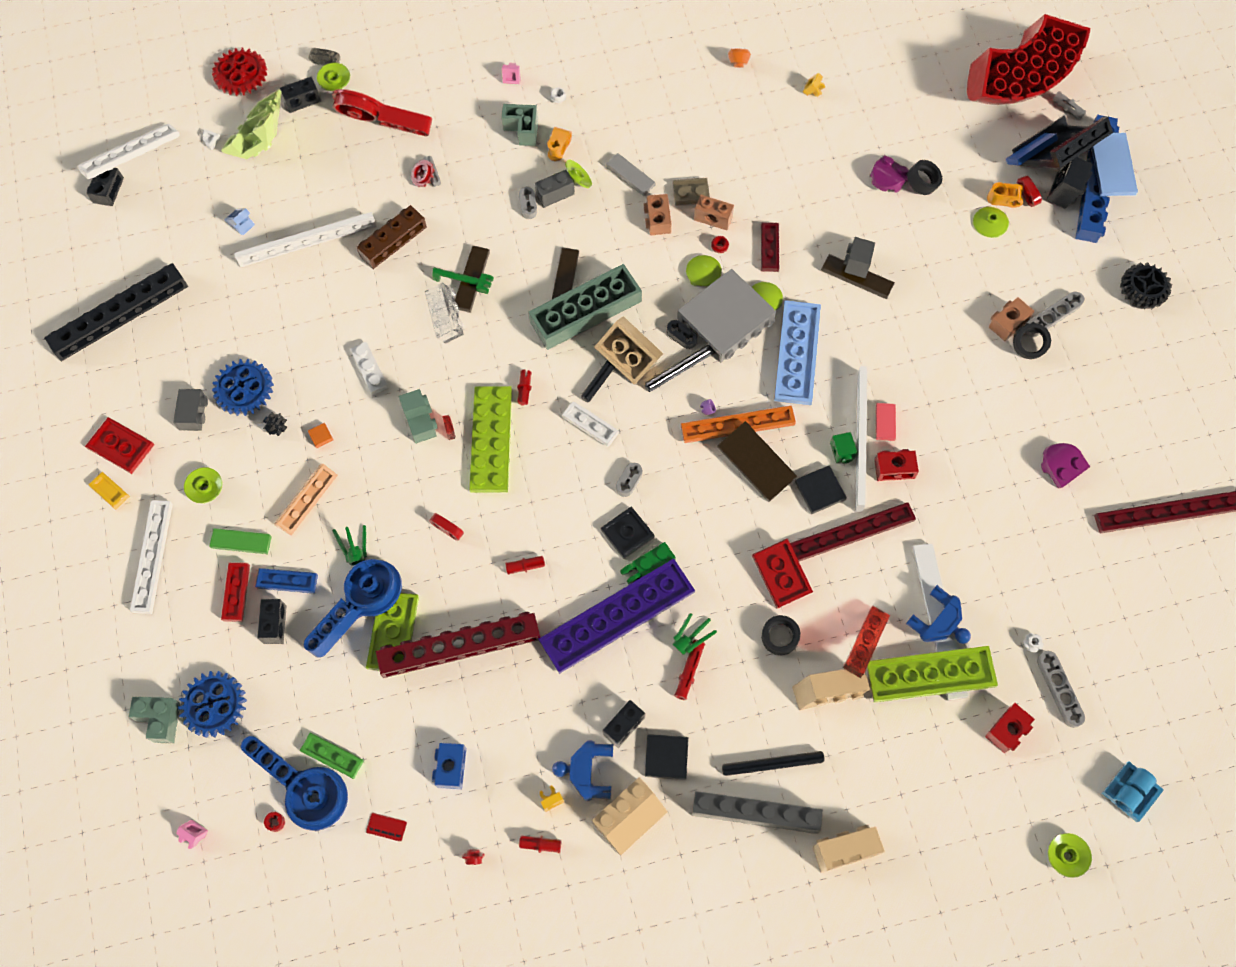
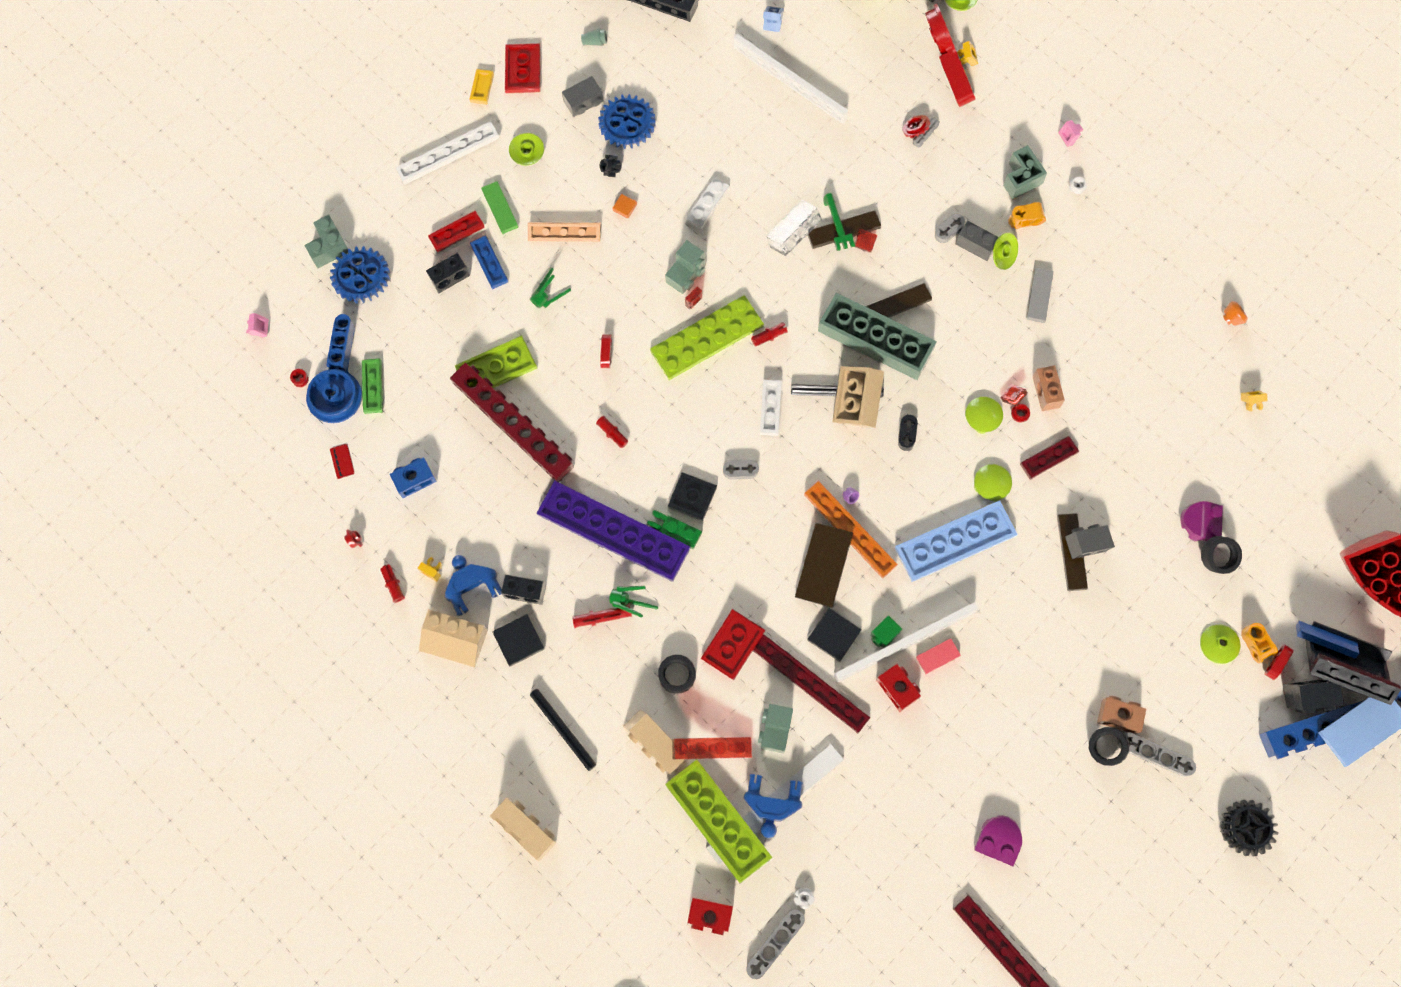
camera: 60 degrees right, 5 degrees up
(141, 368) = (596, 37): none -> sand green cone
(360, 602) = (515, 328): blue beam -> none
(389, 100) = (969, 53): none -> yellow tile
(391, 236) = (838, 141): reddish brown brick -> none
(494, 267) = (865, 240): none -> clear red tile
(659, 214) = (1015, 344): nougat brick -> none
(679, 368) = (878, 451): axle -> none
(689, 190) = (1059, 353): dark tan plate -> none
(702, 239) = (1014, 395): none -> clear red tile
(727, 314) = (951, 459): light grey panel -> none
(757, 812) = (512, 738): dark grey brick -> none
(877, 579) = (777, 726): none -> sand green brick

